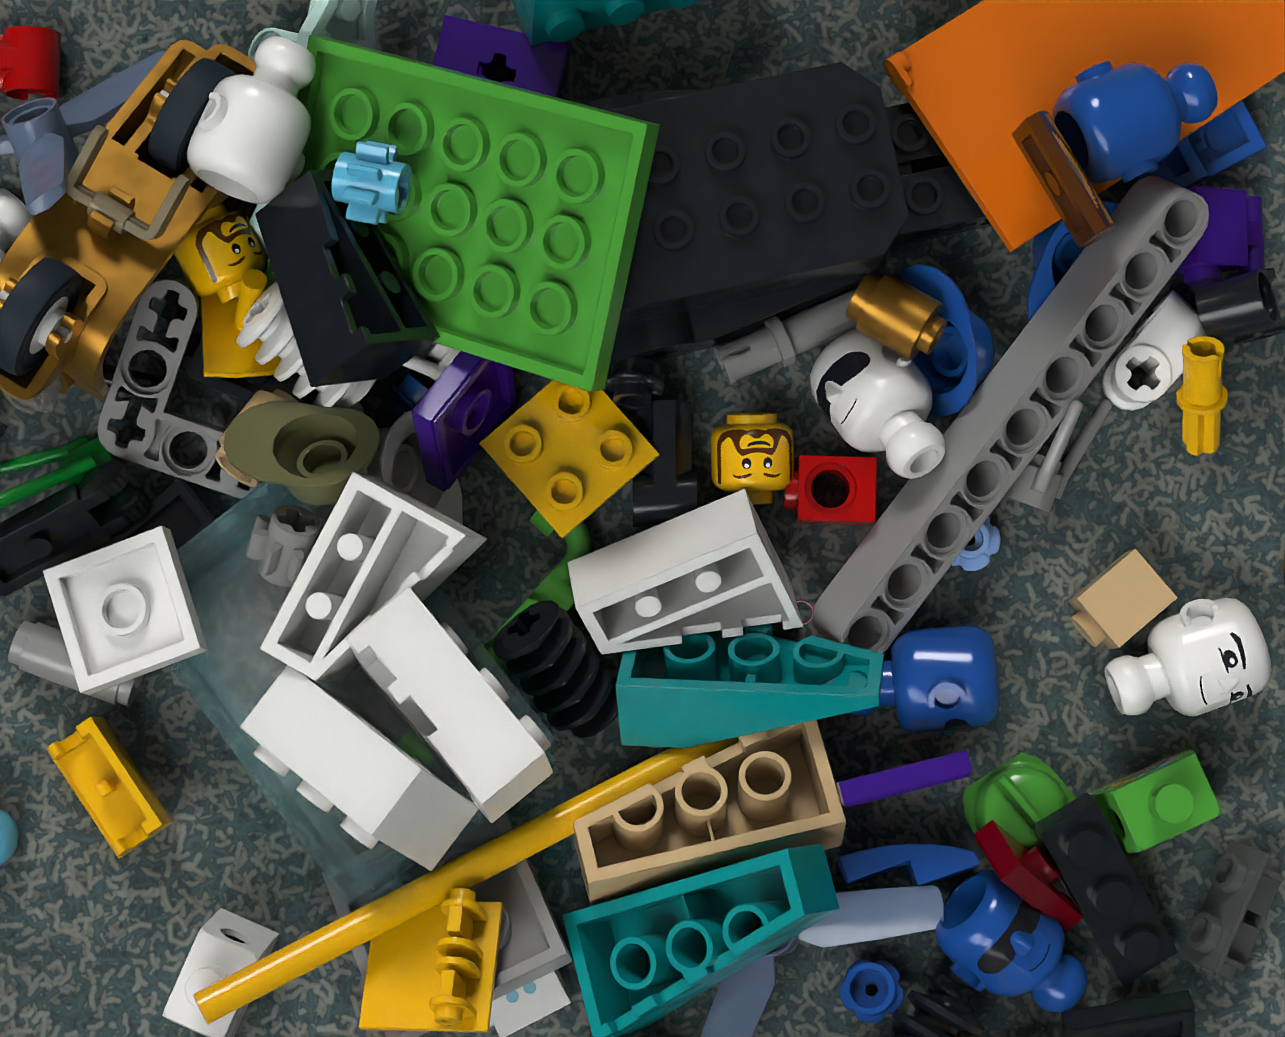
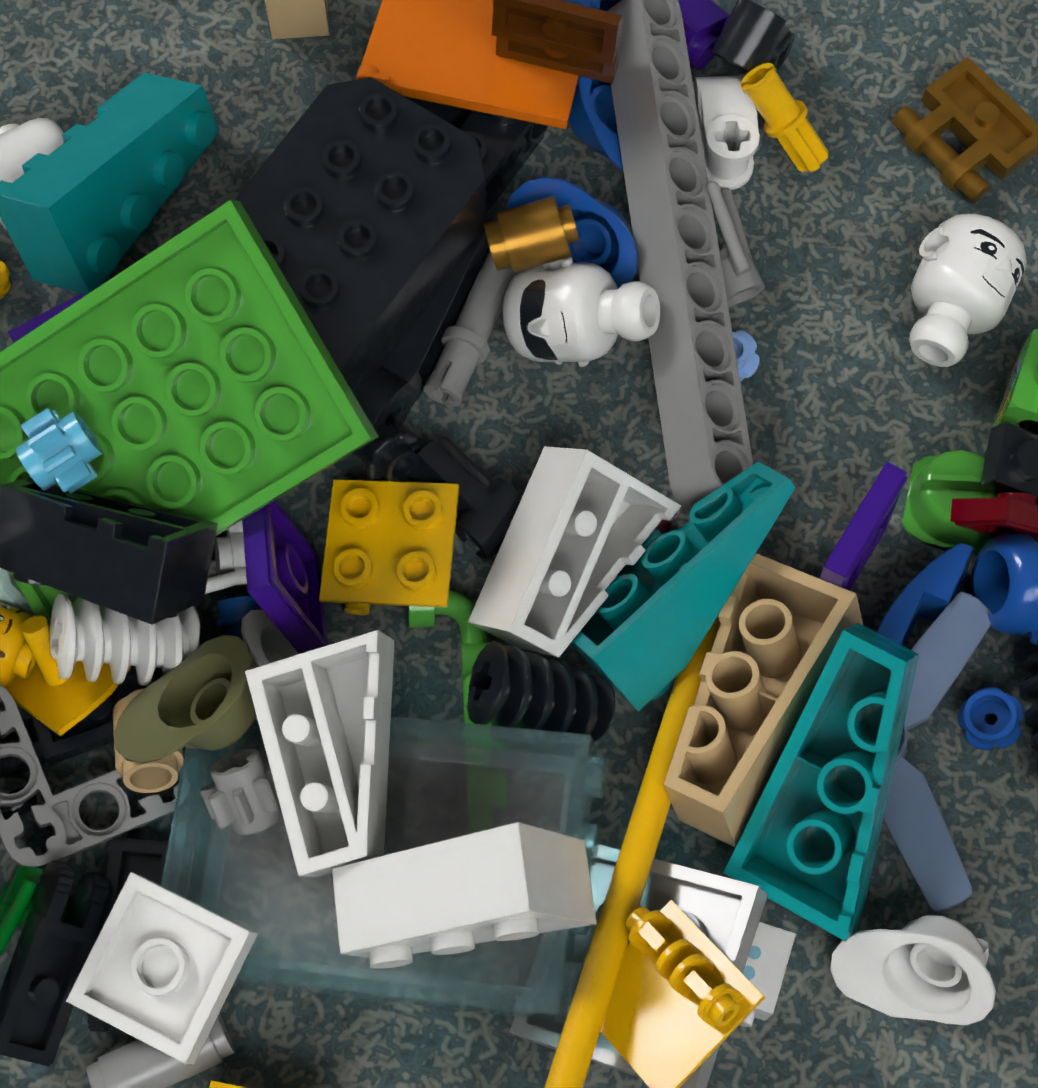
camera: 45 degrees left, 15 degrees down
(451, 704) = (475, 775): white wedge -> none
(752, 455) = (519, 428): yellow head -> none
(859, 481) = (611, 381): red brick -> none
(941, 680) = (820, 449): blue piece -> none
(1120, 601) = (872, 296): tan brick -> none

